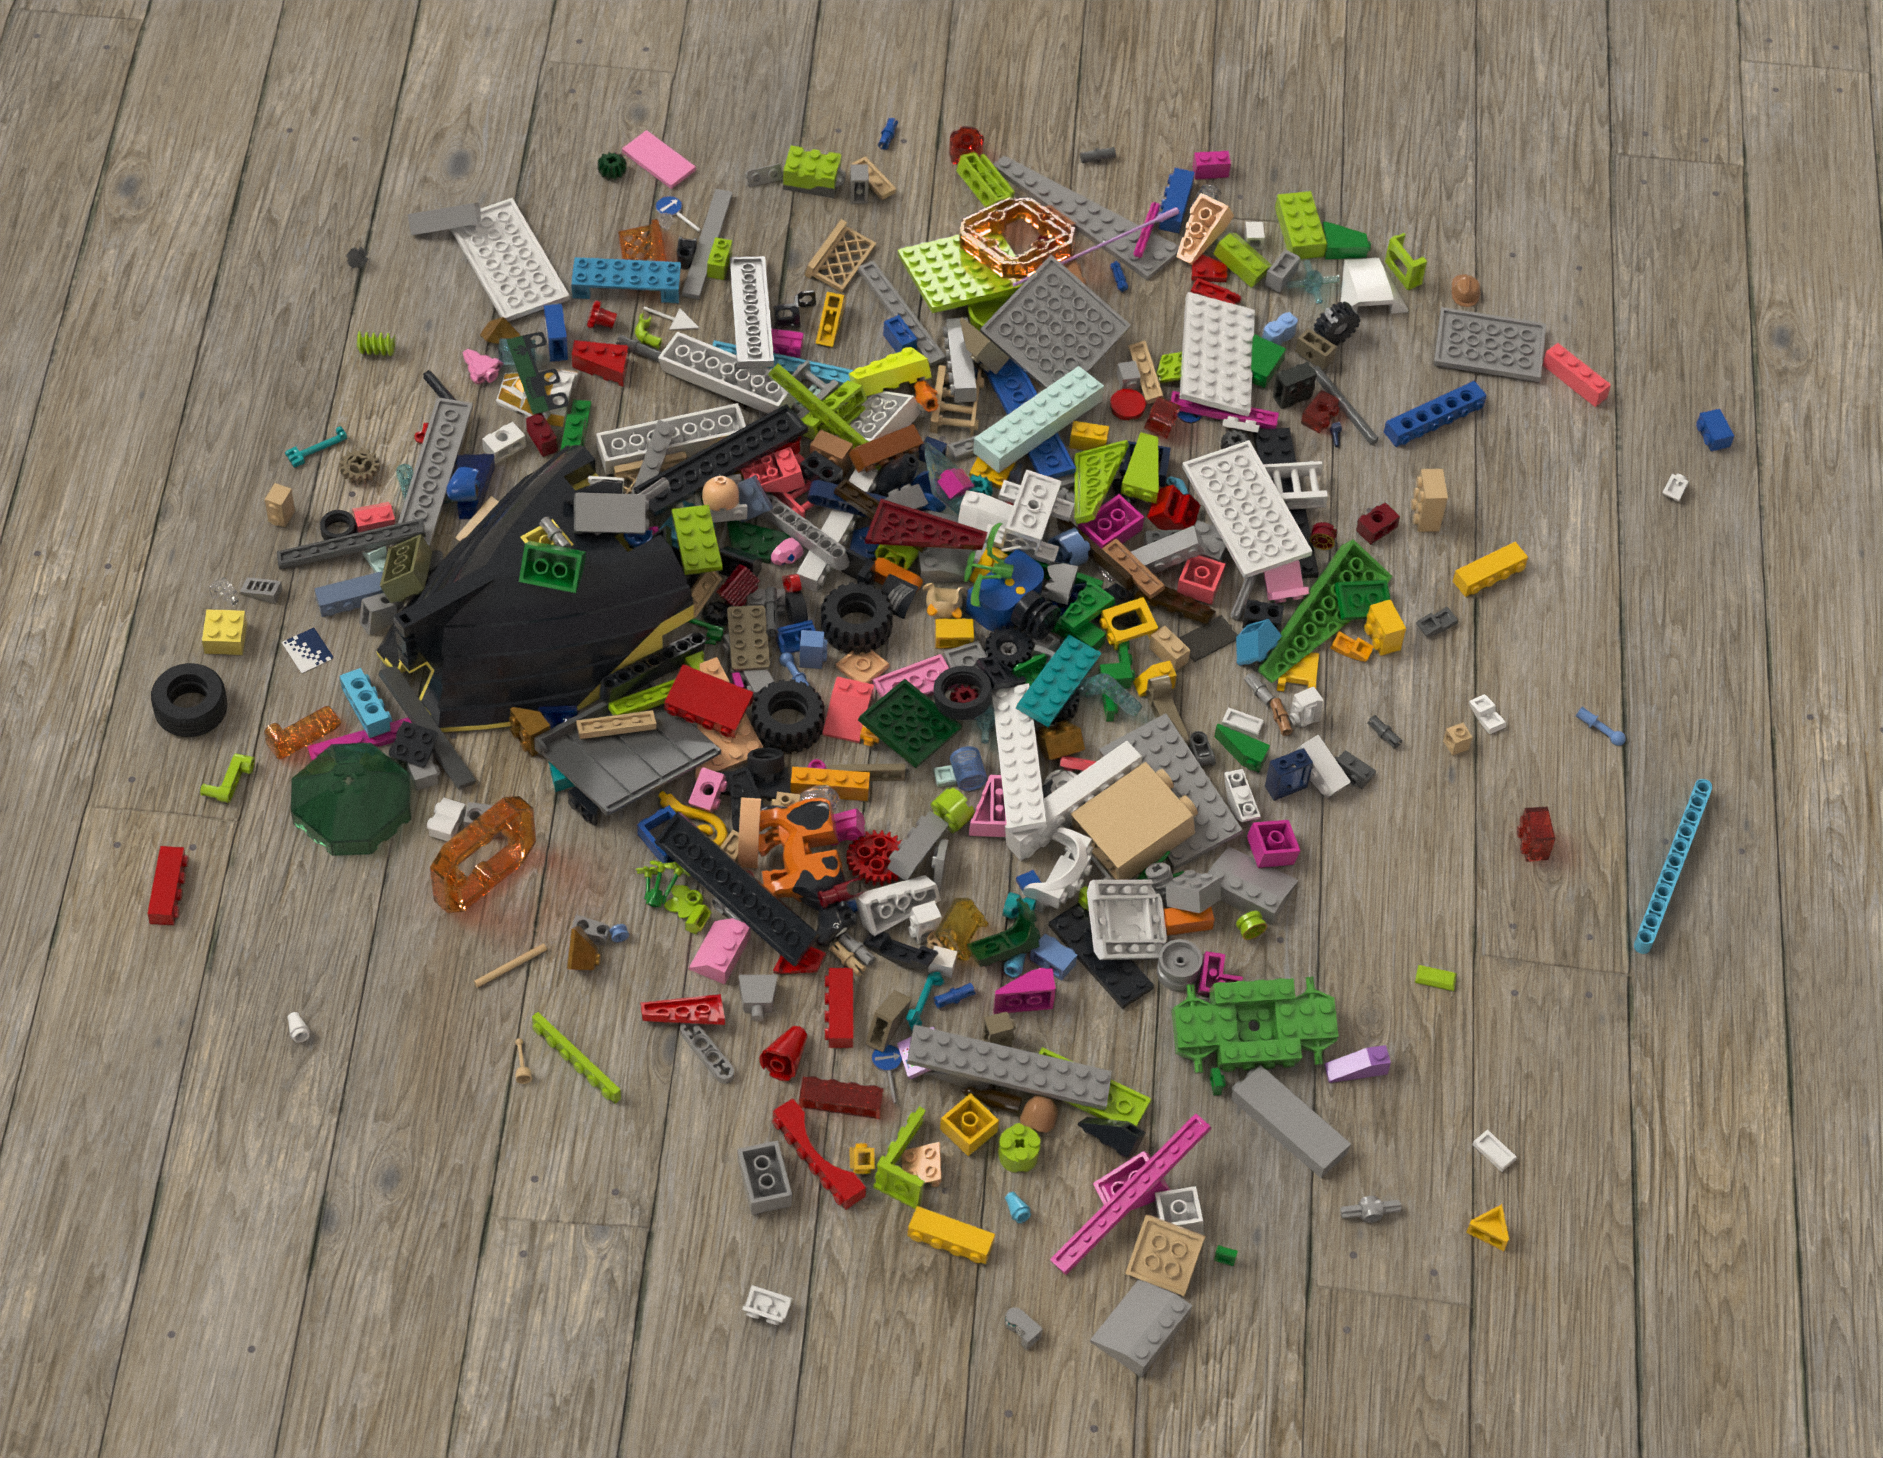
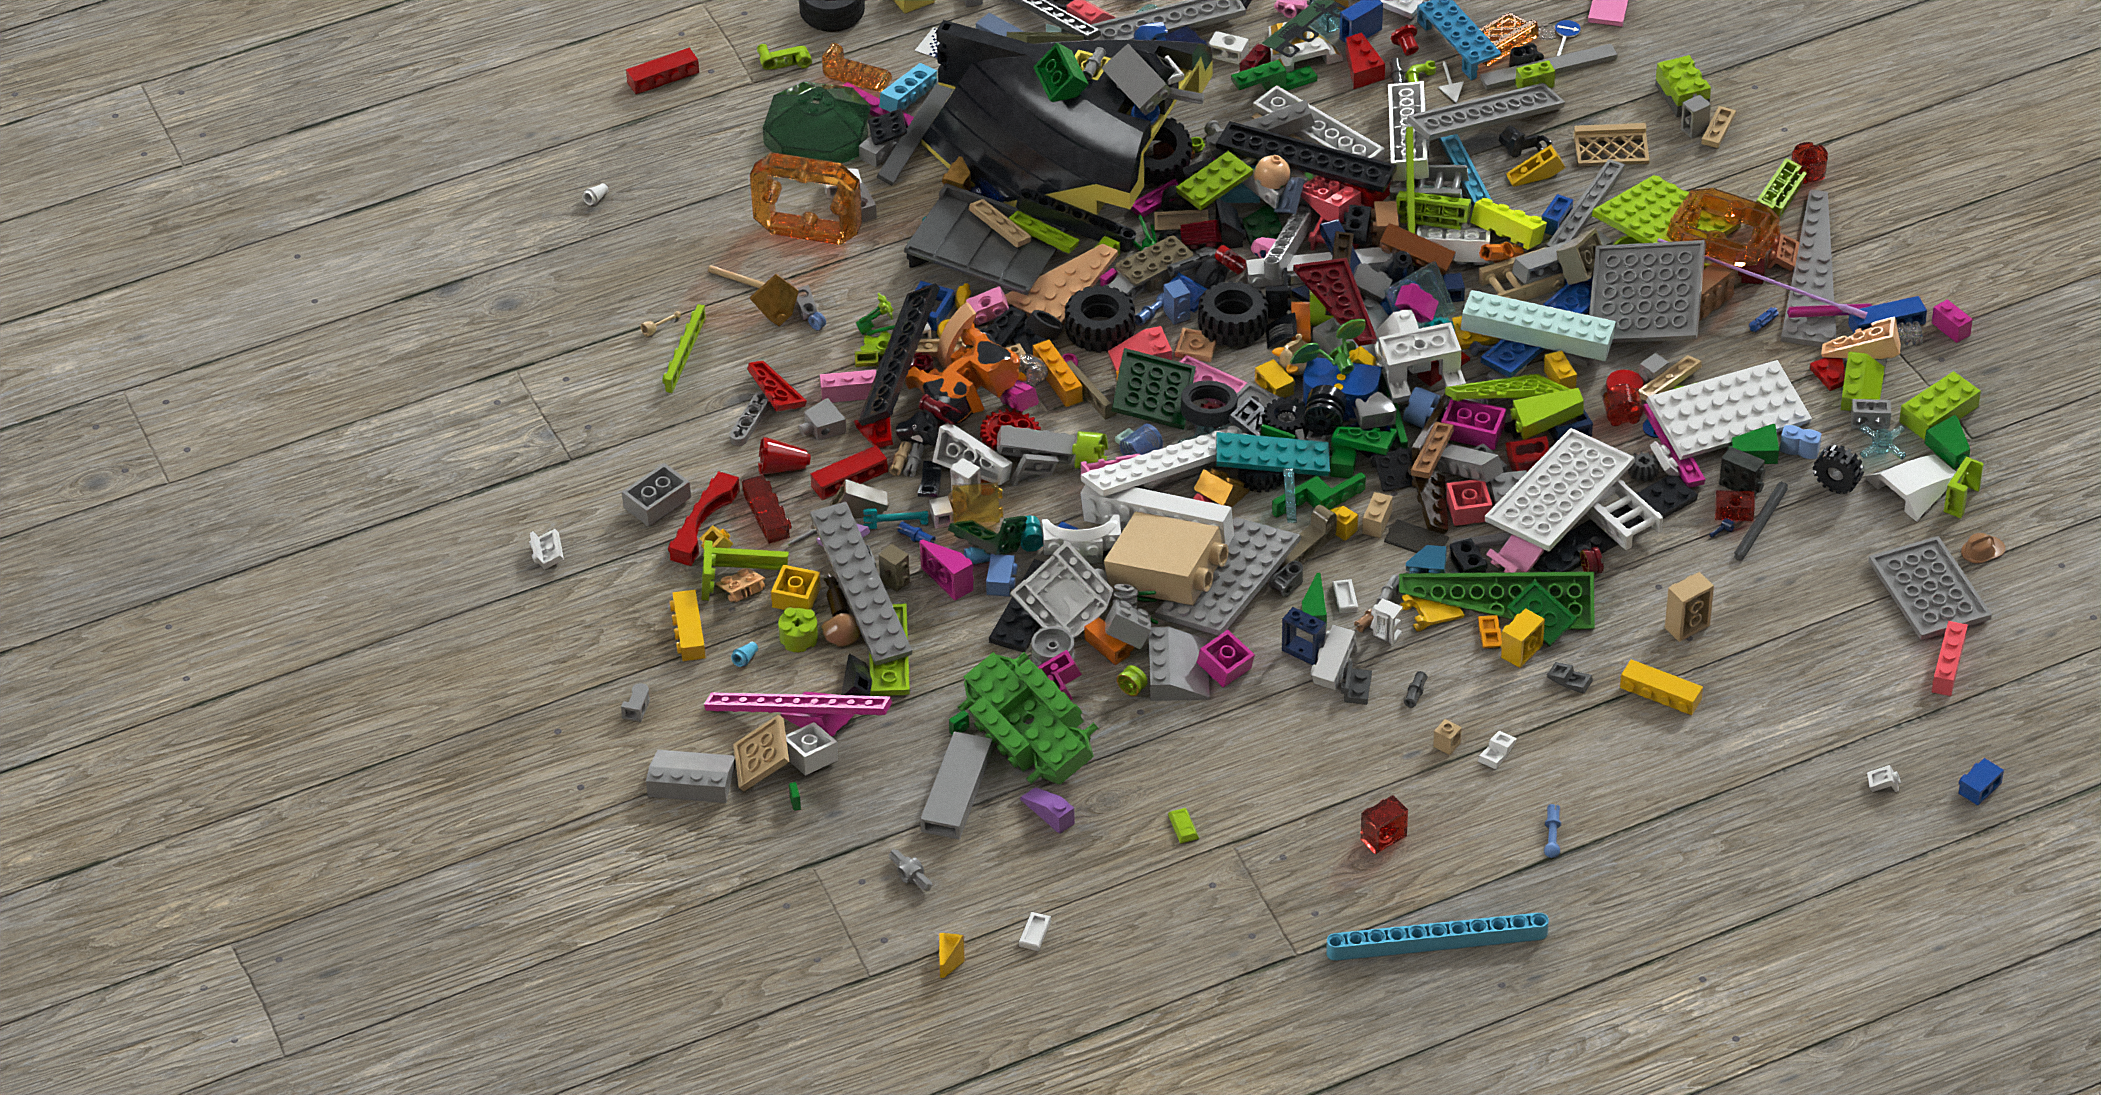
camera: 65 degrees right, 10 degrees down
(708, 701) = (1065, 259): red panel -> none
(764, 175) = (1649, 60): light grey hinge -> none
(787, 342) = (1483, 153): dark pink brick -> none
(888, 133) = (1778, 114): blue pin -> none
(1097, 155) = (1890, 248): dark grey pin -> none
(1116, 636) = (1392, 481): yellow panel -> none
(1214, 291) = (1804, 384): red hinge -> none
(1240, 796) = (1259, 620): white slope -> none
(1254, 234) = (1897, 382): white brick -> none
(1315, 349) = (1800, 471): dark tan brick -> none
(1377, 523) = (1642, 593): dark red brick -> none
(1435, 414) = (1807, 581): blue brick -> none

